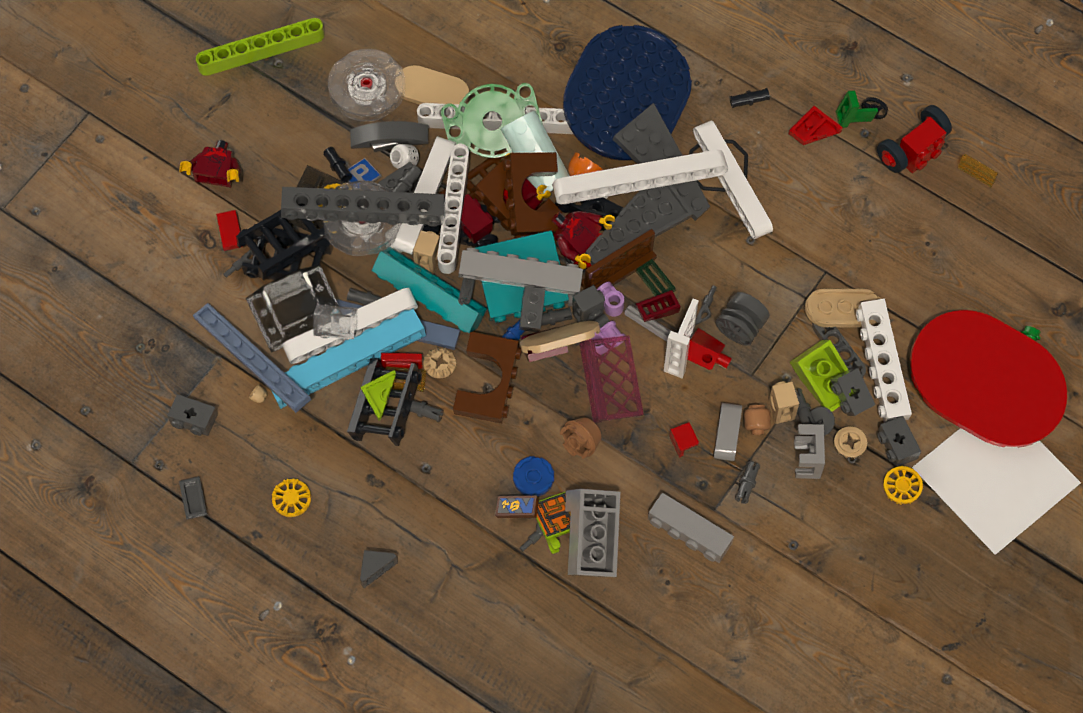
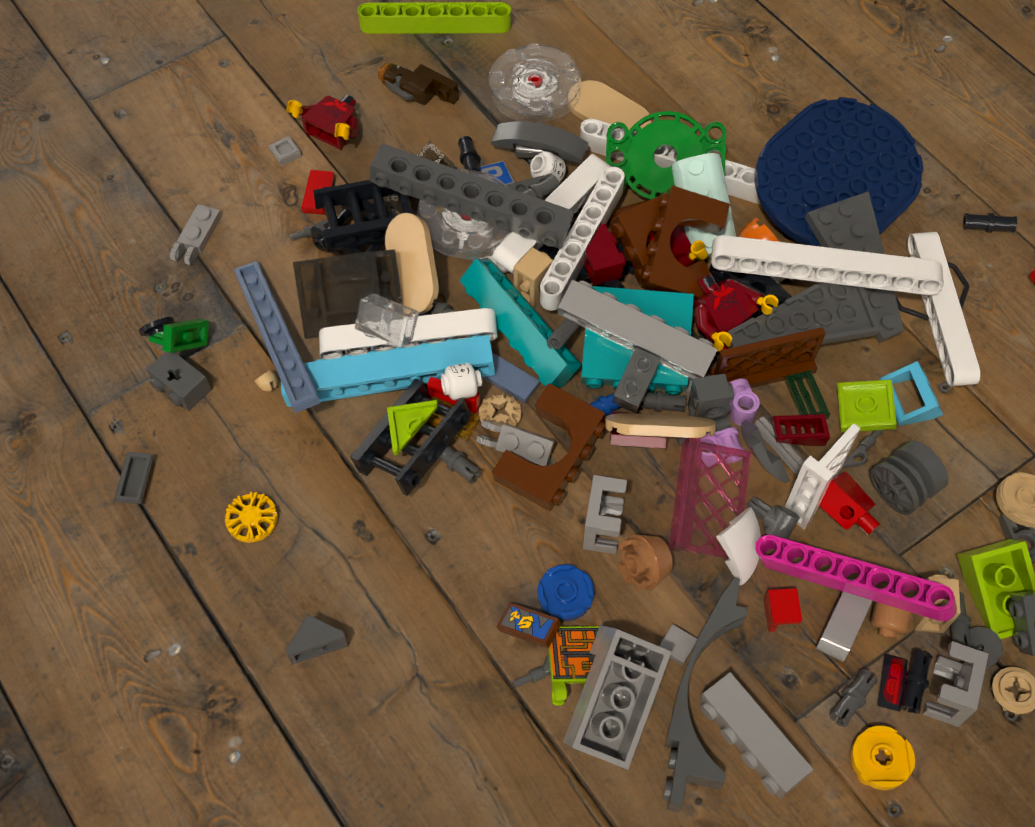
camera: 20 degrees right, 5 degrees down
(148, 294) = (195, 234): none -> light grey hinge
(180, 383) = (177, 336): none -> green piece
(187, 203) = (285, 151): none -> light grey tile
(271, 113) = (418, 84): none -> dark brown plate
(337, 267) = (415, 260): none -> tan tile
(407, 350) = (460, 381): none -> white head
(461, 380) = (519, 441): none -> light grey hinge
(538, 420) = (597, 521): none -> light grey panel
(622, 484) = (679, 643): none -> light grey tile
(633, 331) = (758, 448): none -> dark grey brick
(643, 403) = (739, 544): none -> white brick
(653, 557) = (690, 760): none -> dark grey slope
(662, 378) = (776, 520): none -> dark grey axle
(699, 273) = (866, 405): none -> lime tile
(732, 405) = (862, 586): none -> dark pink beam
(737, 248) = (930, 411): none -> medium azure tile
(770, 463) = (892, 682): none -> sticker
(773, 526) = (893, 745): none -> yellow plate
(785, 458) = (916, 682): none -> black pin

